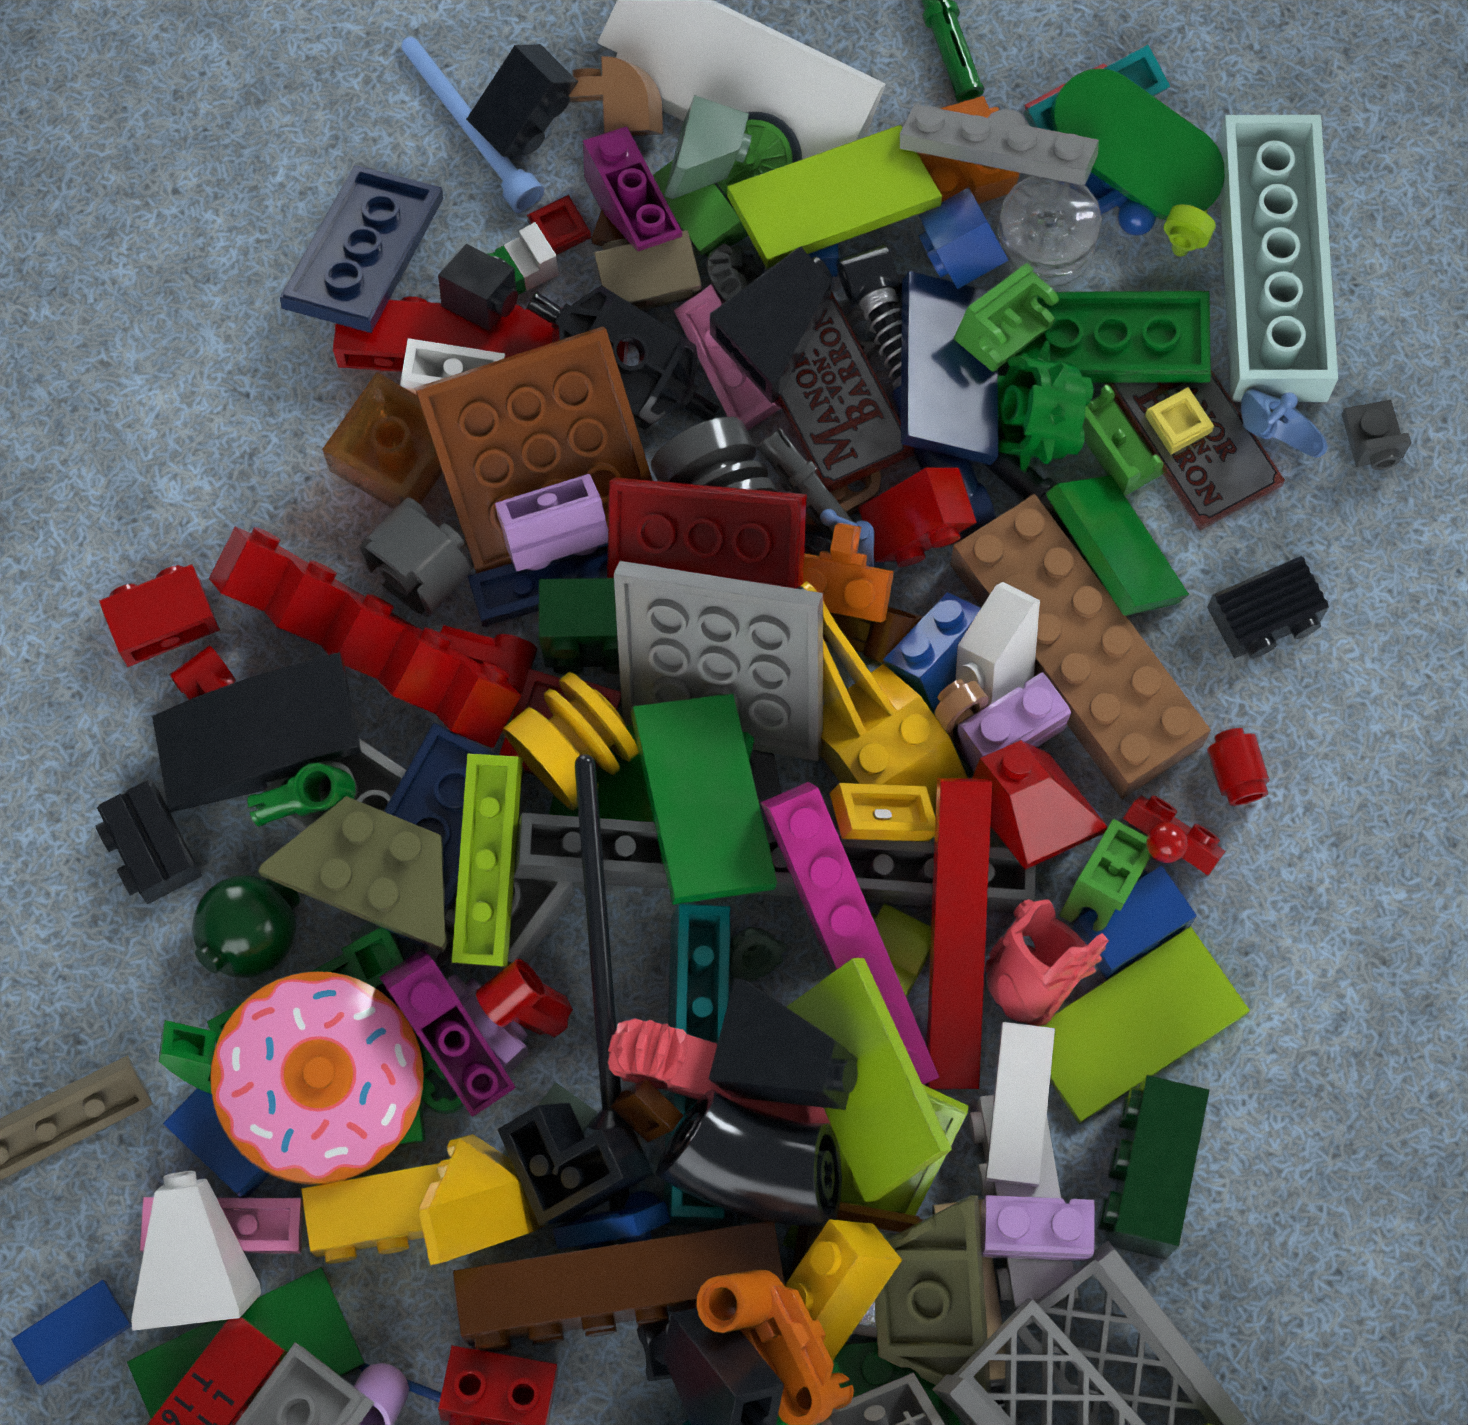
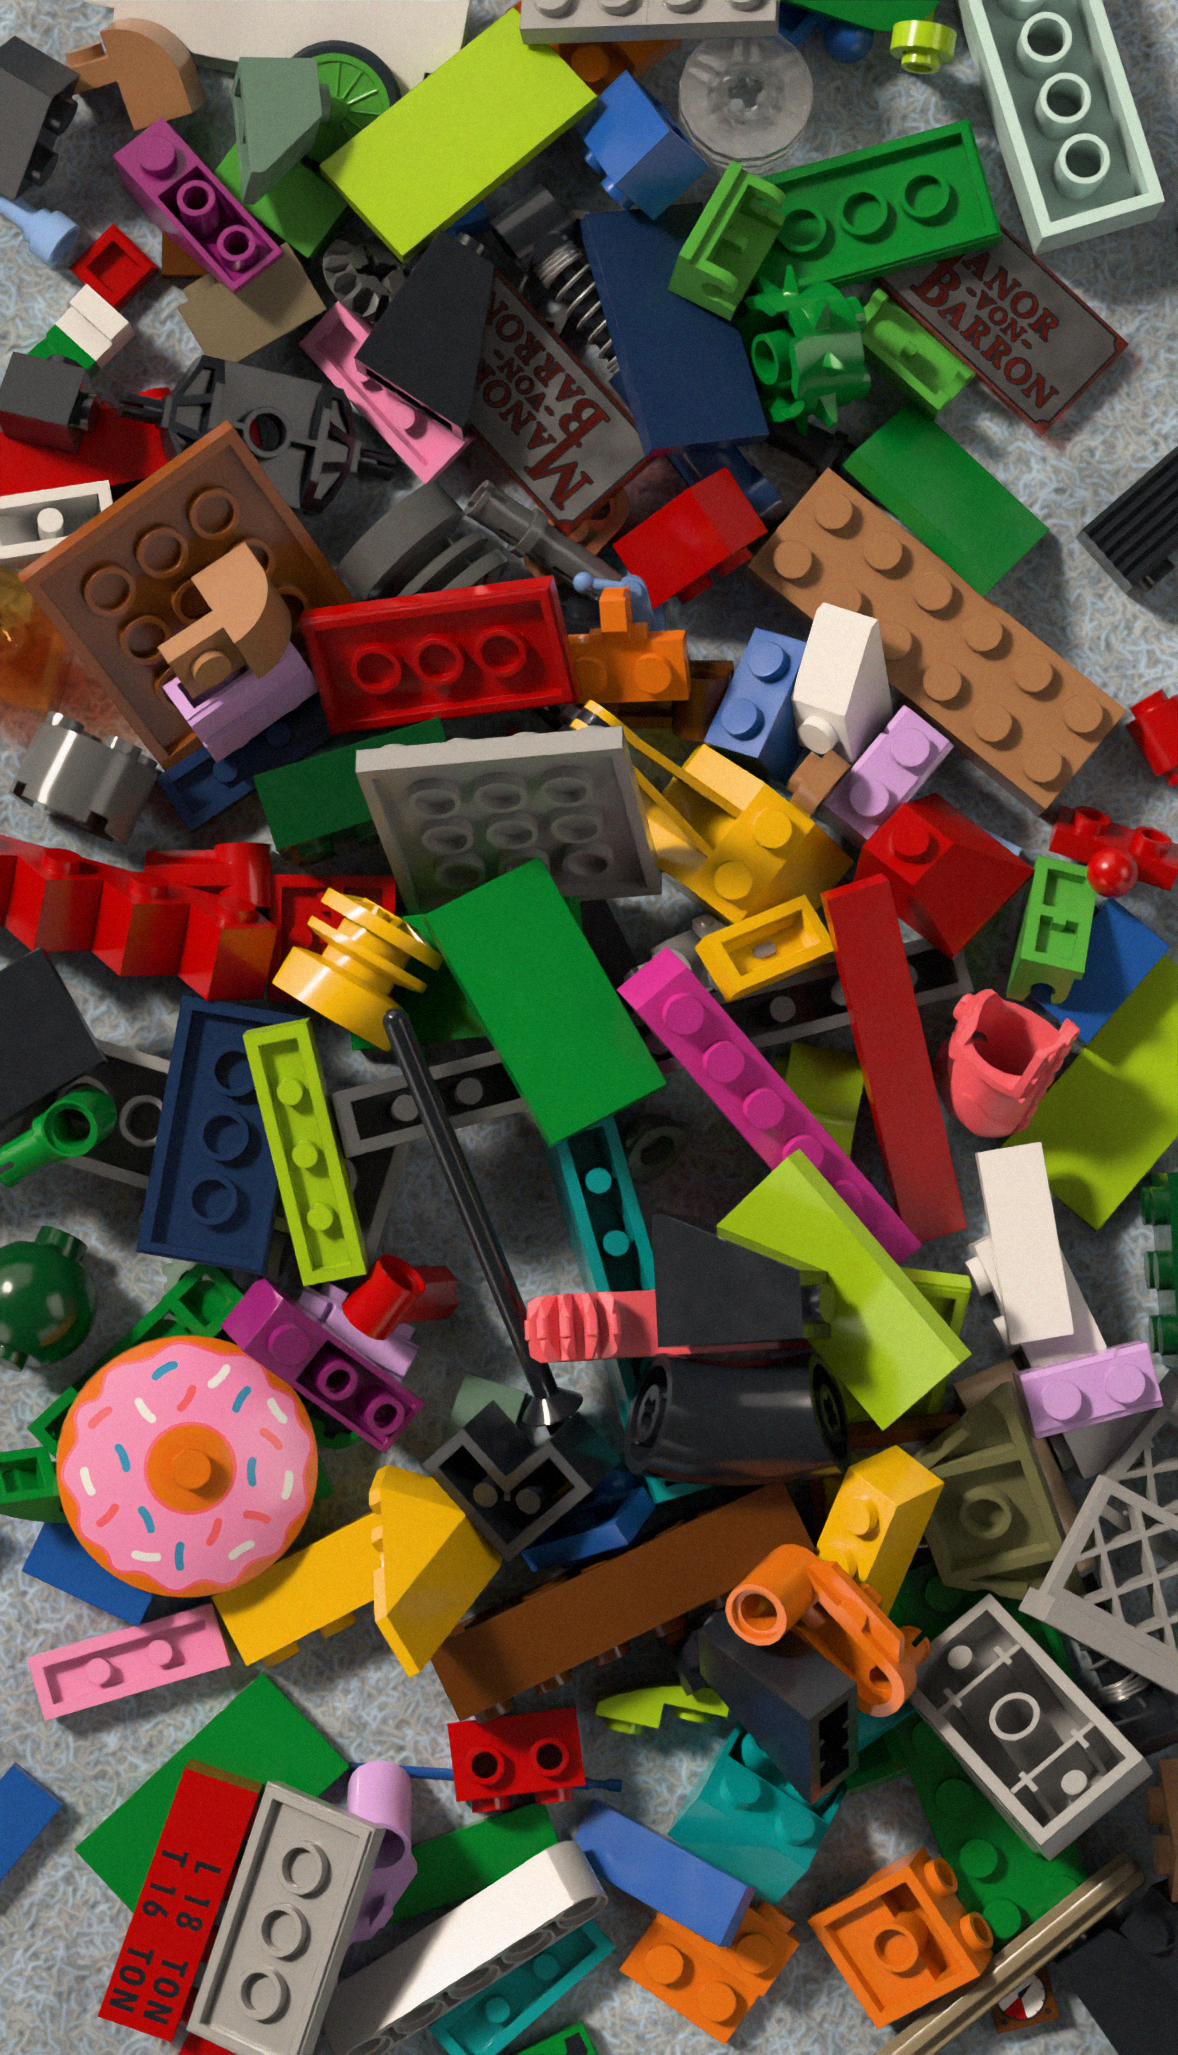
camera: 20 degrees left, 15 degrees up
(191, 1260) = (117, 1727): white slope -> none
(369, 869) = (168, 1204): olive wing -> none
(564, 471) = (244, 627): none -> medium nougat brick
(611, 1383) = (642, 1703): none -> lime slope
(647, 1110) = (591, 1391): reddish brown tile -> none
(1179, 420) = (978, 306): light yellow tile -> none
(1284, 423) = (1114, 267): medium blue helmet -> none

